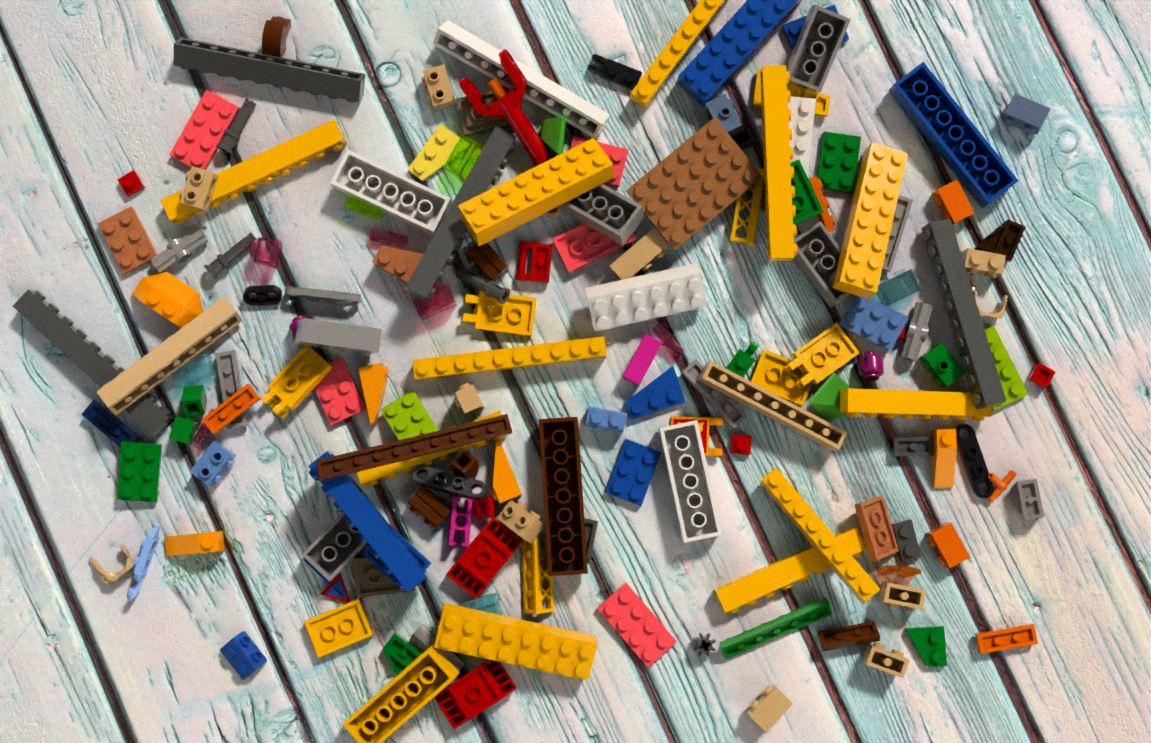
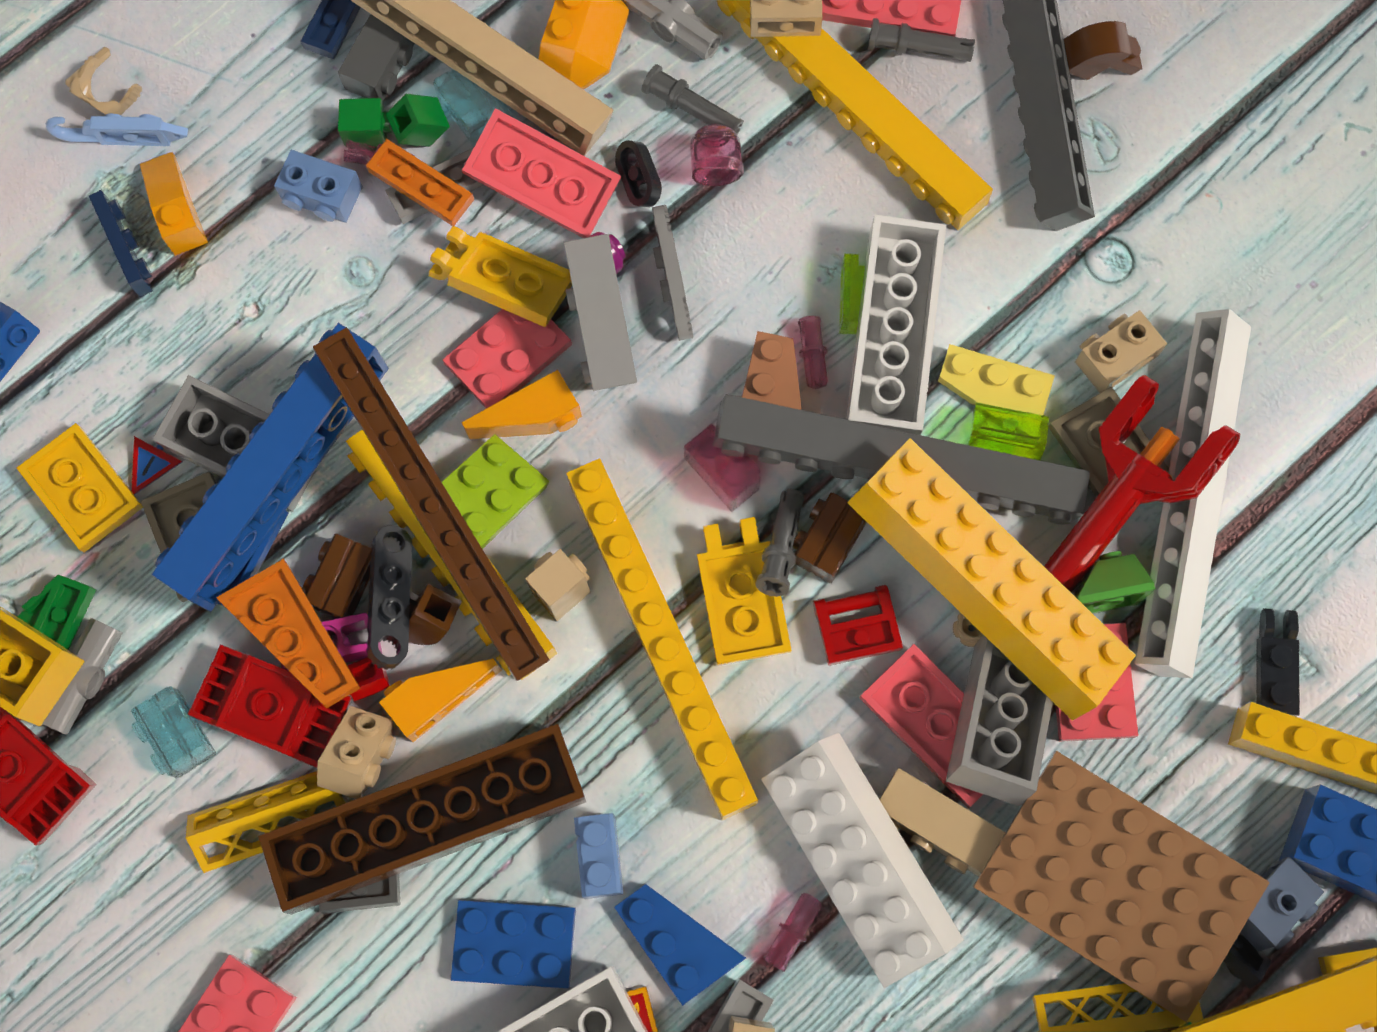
camera: 80 degrees right, 10 degrees down
(139, 471) = (271, 75): green plate -> none
(210, 574) = (122, 242): none -> dark blue plate
(247, 345) = (541, 174): none -> coral plate
(447, 537) = (288, 626): none -> orange wing
(515, 641) = (121, 816): yellow brick -> none
(642, 360) = (737, 891): dark pink piece -> none

